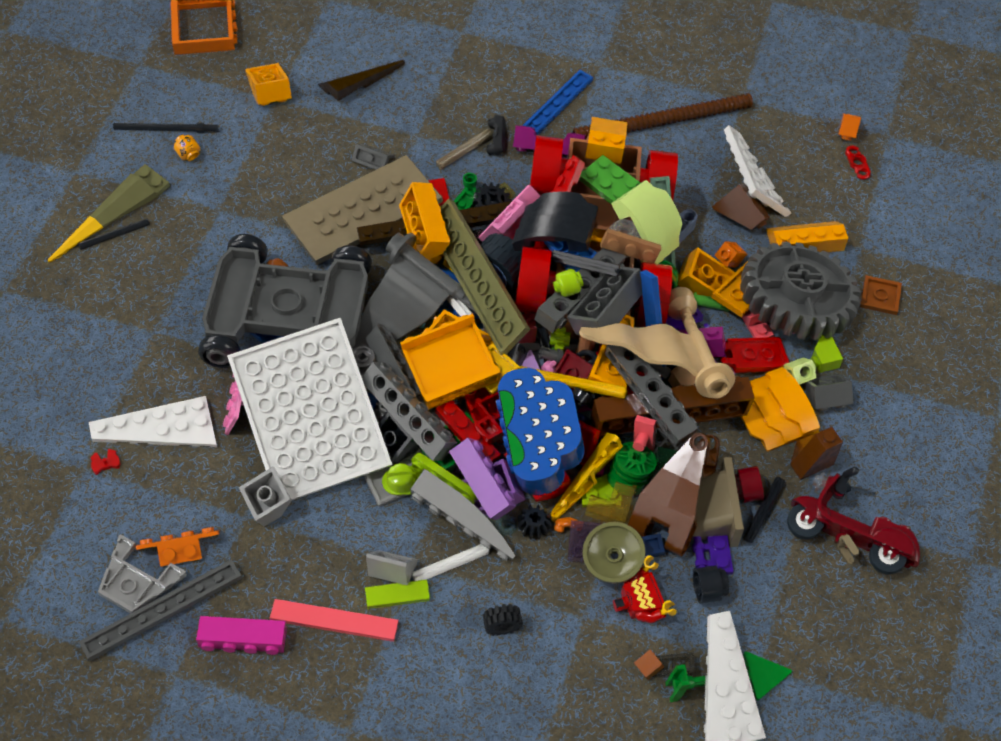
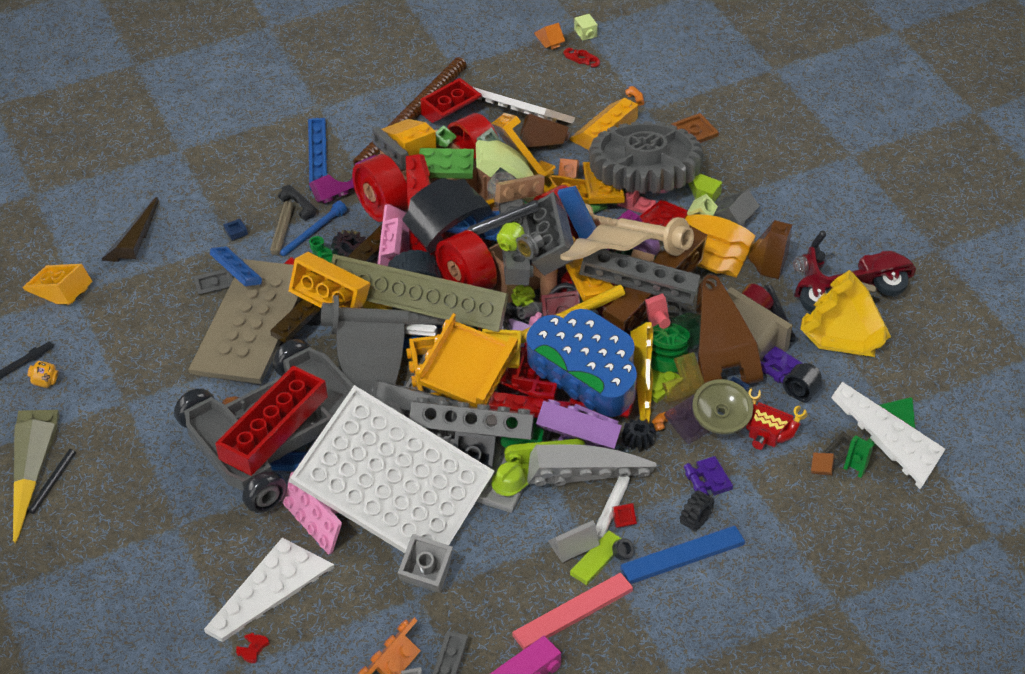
camera: 40 degrees left, 10 degrees down
(266, 300) = (271, 420): none -> red brick
(390, 157) = (235, 266): none -> blue tile
(419, 603) = (623, 549): none -> black tile
(429, 126) = (235, 229): none -> dark blue plate
(450, 577) = (624, 515): none -> red tile
(460, 645) = (682, 554): none -> blue tile
(518, 162) = (337, 209): none -> blue piece
(555, 603) = (713, 474): none -> dark purple plate
(574, 300) = (529, 245): none -> dark grey piece
(582, 138) = (389, 147): none -> dark grey plate
(635, 157) = (444, 136): none -> bright green slope
(691, 210) = (504, 127): none -> light orange panel
(698, 126) = (448, 100): none -> red slope
(806, 560) = (846, 319): none -> yellow panel
(867, 228) = (633, 91): none -> orange arm
(889, 137) = (585, 27): none -> yellowish green brick

